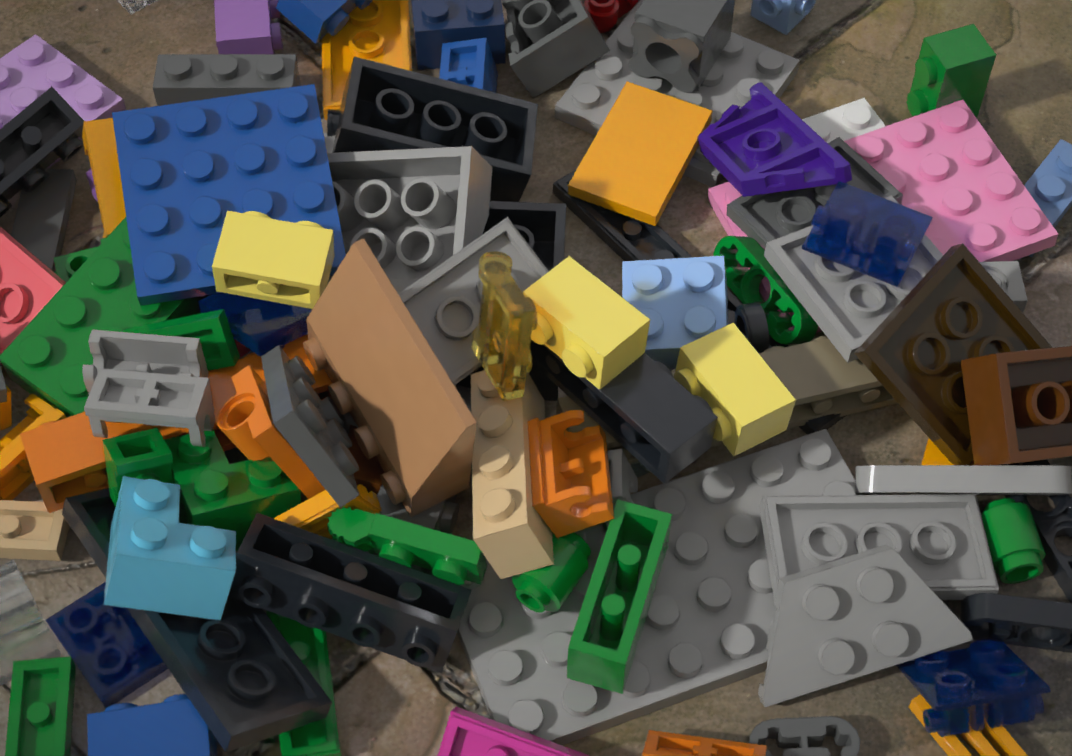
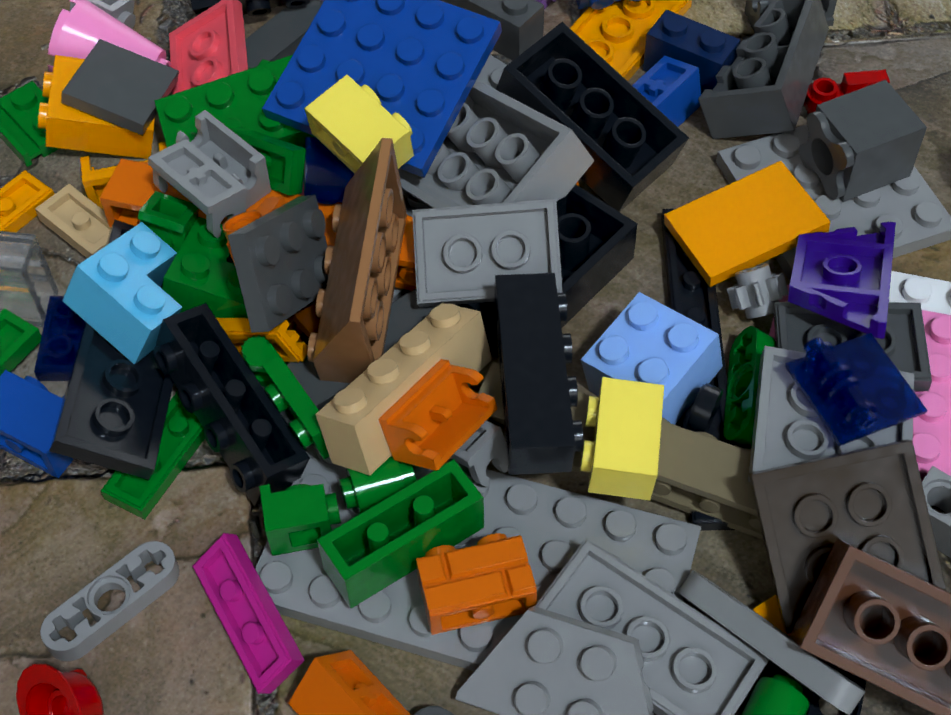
camera: 40 degrees right, 0 degrees up
(504, 327) = (467, 270): clear yellow plate -> none
(508, 648) = (297, 516): none -> green brick
(587, 323) = (528, 307): light yellow brick -> none
(699, 205) = (757, 291): none -> light grey gear
(711, 595) = (476, 583): none -> orange brick

